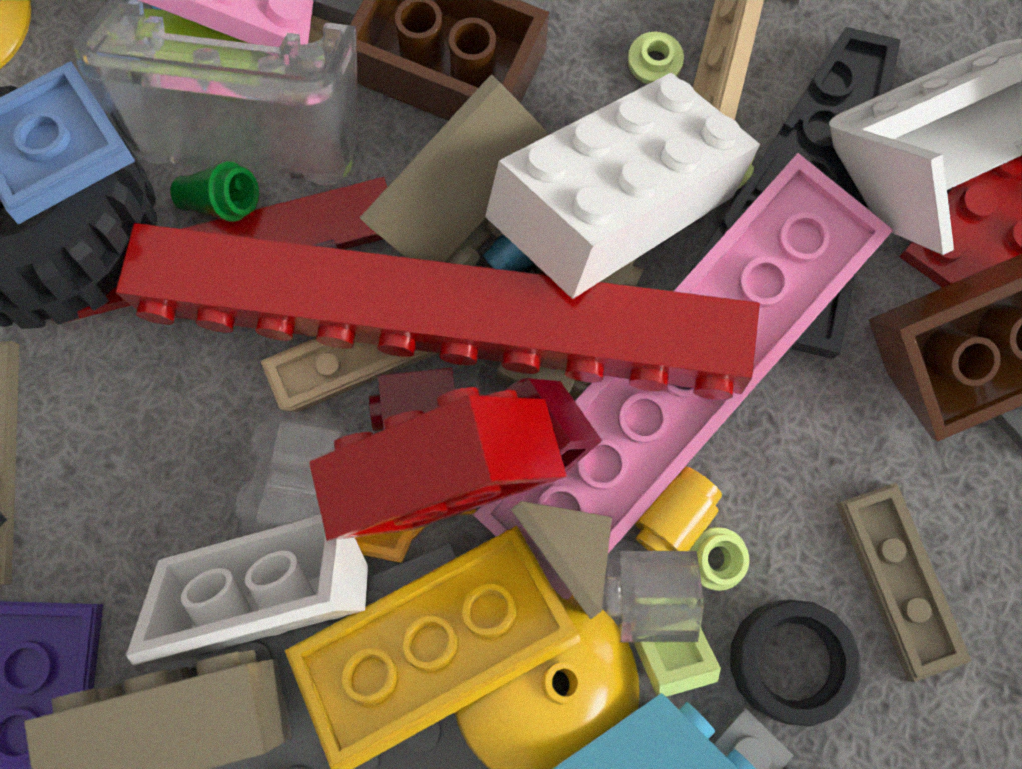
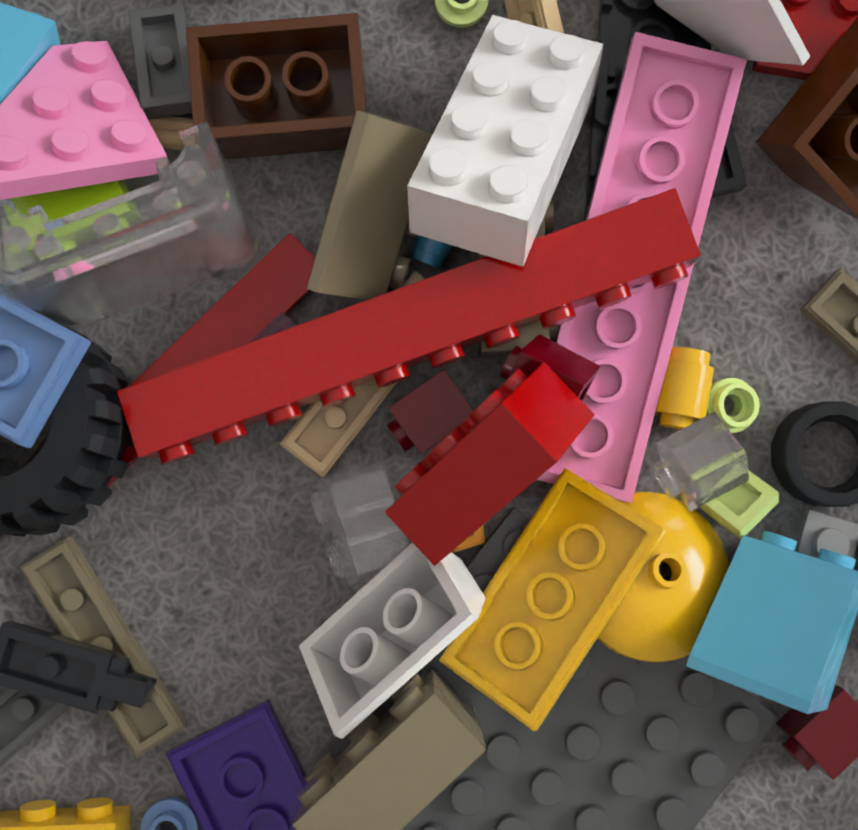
camera: 30 degrees left, 10 degrees up
(218, 191) = (162, 322): green cone -> none
(574, 546) = (620, 460): dark tan slope -> none

